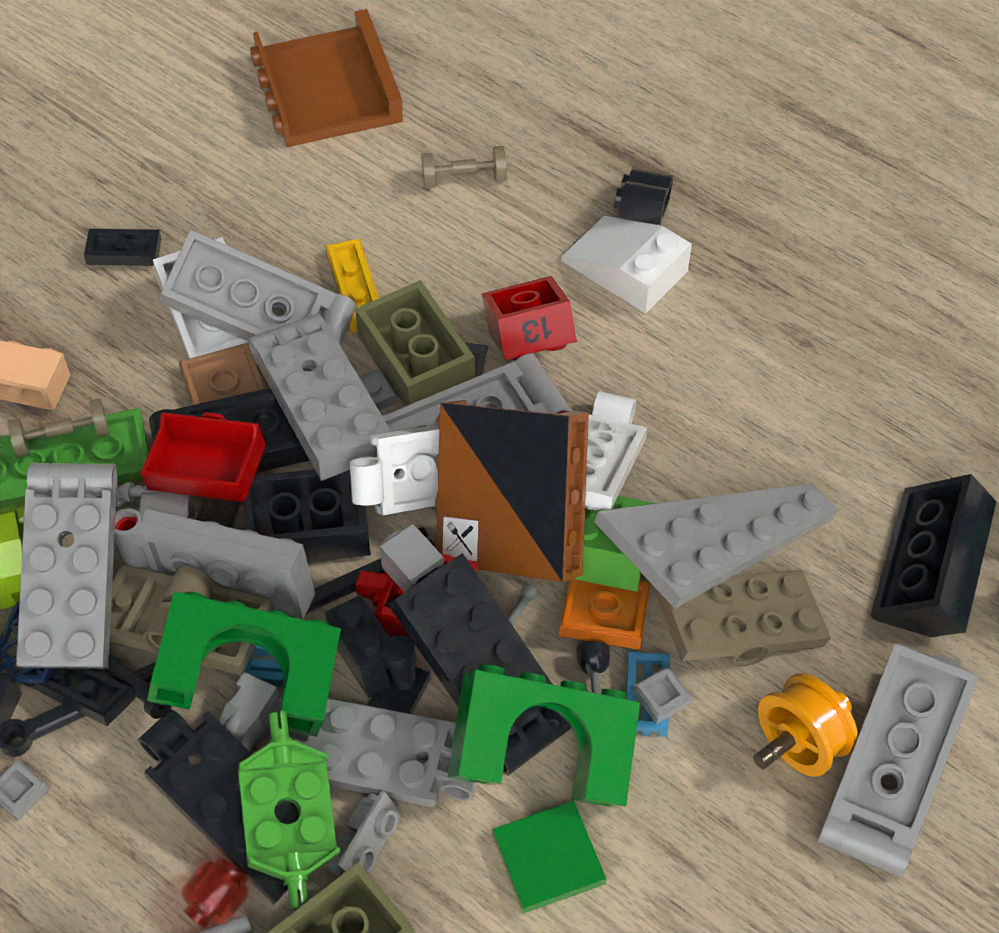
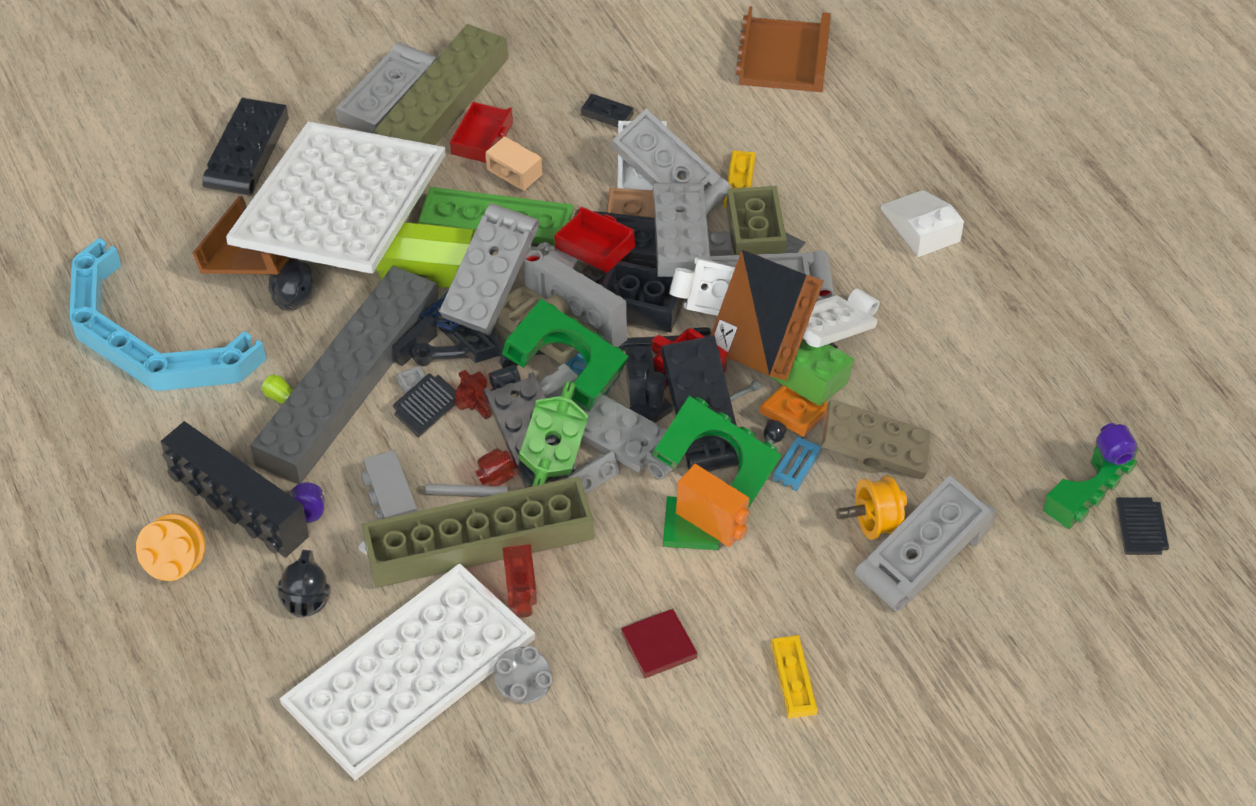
camera: 25 degrees right, 5 degrees down
(54, 822) = (425, 404): none -> black window
(57, 428) = (545, 200): dark tan wheel -> none
(120, 777) = (471, 393): none -> clear red hips
(409, 557) = (685, 328): light grey brick -> none
(464, 166) = (845, 131): dark tan wheel -> none
(529, 318) = (834, 230): red brick -> none
(581, 827) = (712, 505): none -> orange brick
(644, 196) = (953, 185): black brick -> none
(662, 695) = (803, 464): light grey tile -> none
(707, 540) = (870, 387): light grey wing -> none
(935, 557) = (1021, 453): black slope -> none

